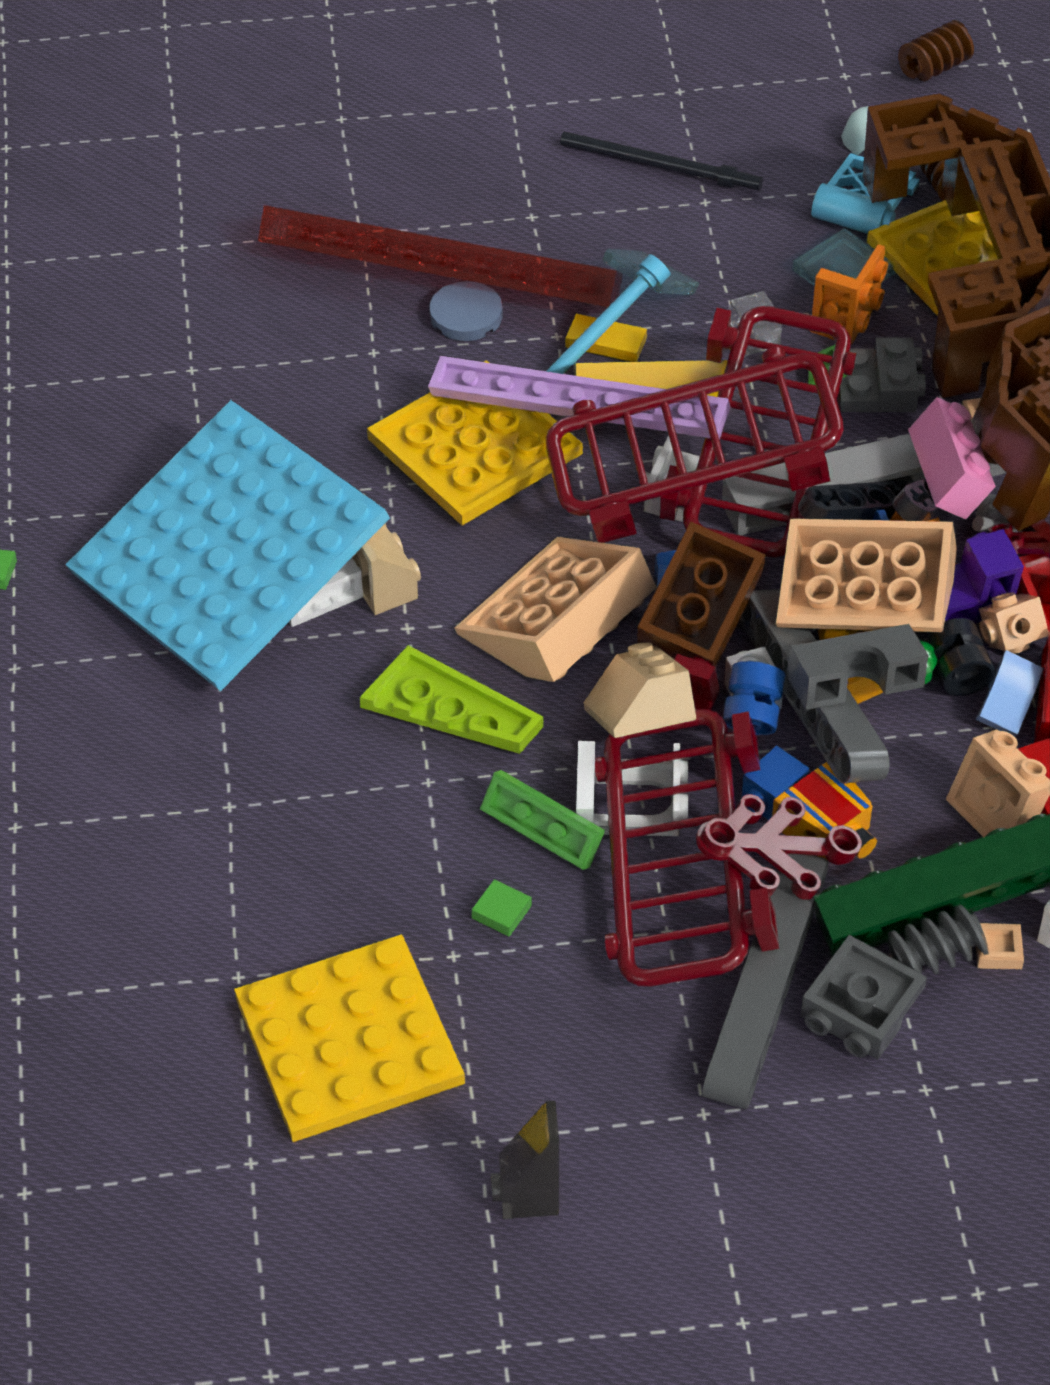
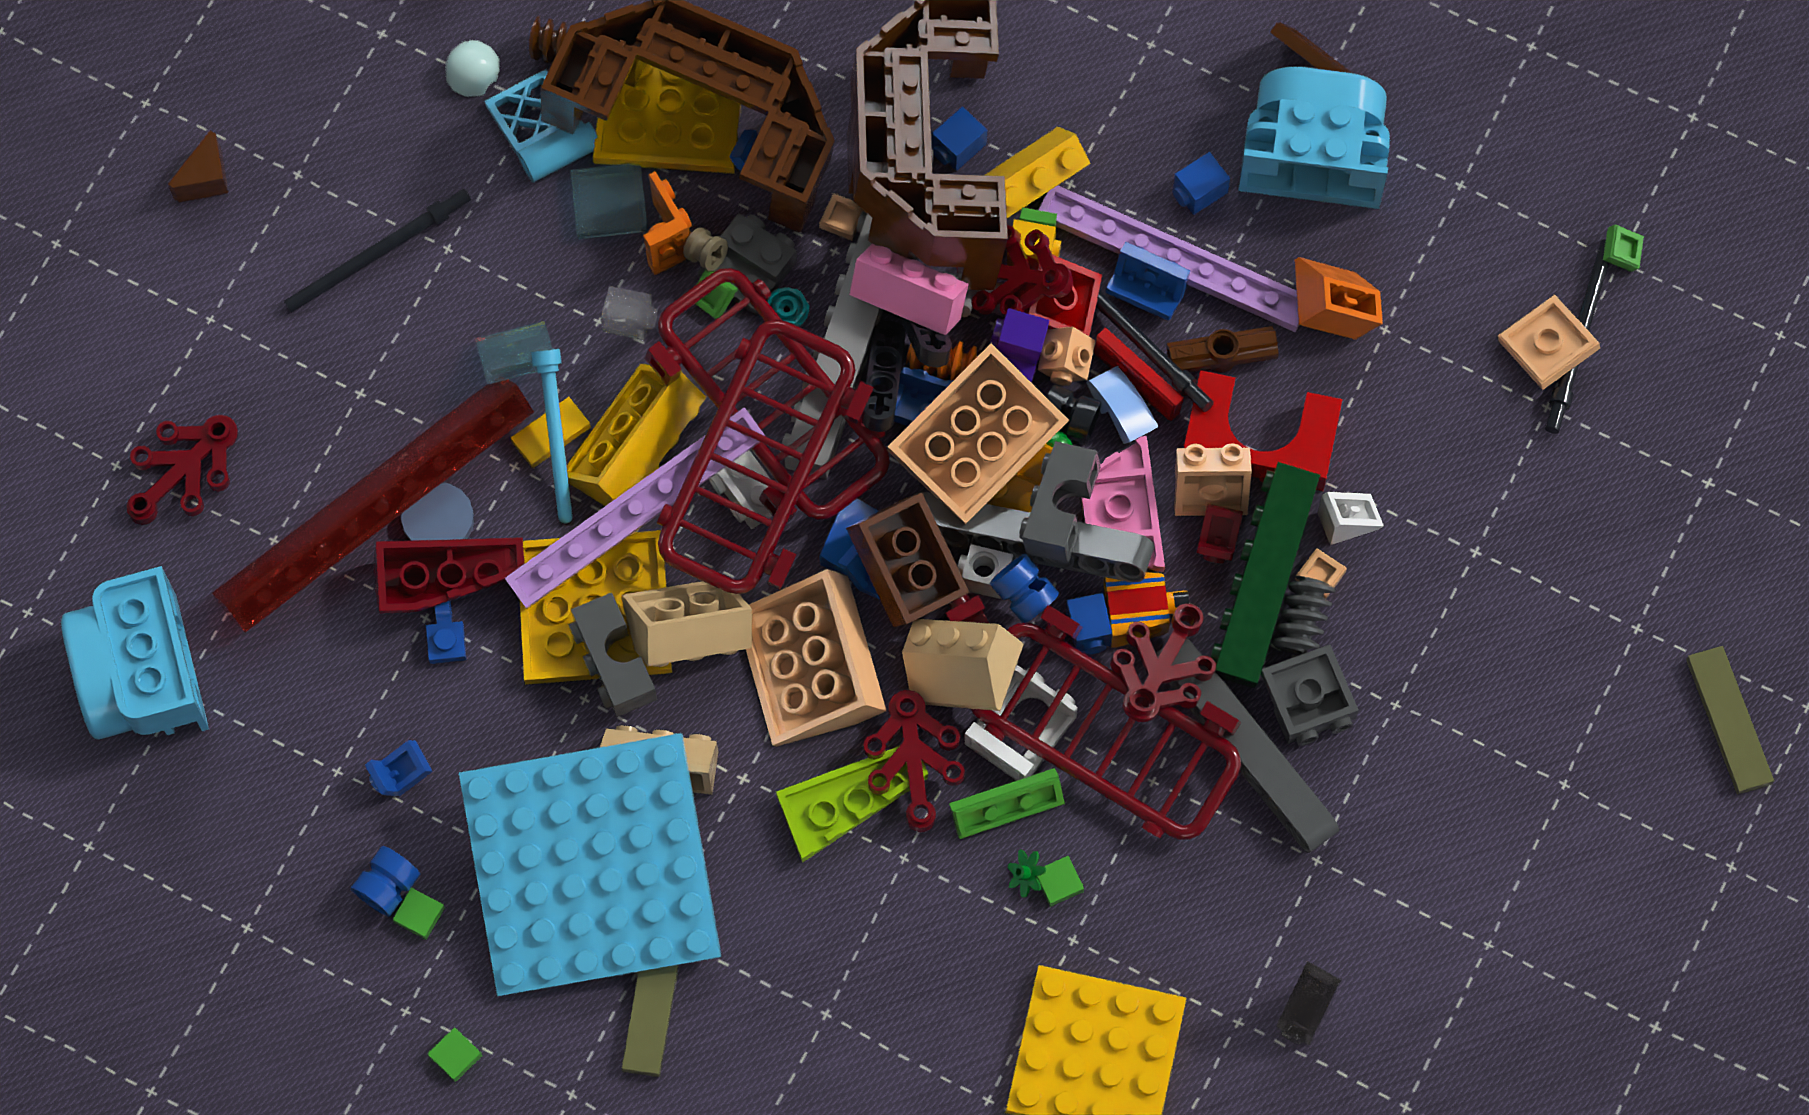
camera: 55 degrees left, 20 degrees up
(103, 479) = (418, 913): none -> bright green tile
(111, 436) = (384, 882): none -> blue wheel
(124, 681) = (650, 1021): none -> olive tile
(176, 182) = (133, 658): none -> medium azure brick
(211, 395) = (399, 770): none -> blue bracket
(367, 369) = (446, 637): none -> blue plate
(408, 314) = (431, 572): none -> dark red wedge
(410, 152) = (184, 464): none -> dark red plant
(416, 480) = (623, 683): none -> dark grey arch
(486, 872) = (1026, 873): none -> green plant
(507, 496) = (687, 623): none -> tan slope
(564, 694) = (913, 752): none -> dark red plant
(624, 33) = (202, 172): none -> reddish brown slope
(862, 321) = (705, 249): none -> dark tan wheel
(863, 420) = (792, 299): none -> teal plate
(921, 748) = (1126, 497): none -> bright pink wing
(961, 826) = (1219, 533): none -> dark red bracket

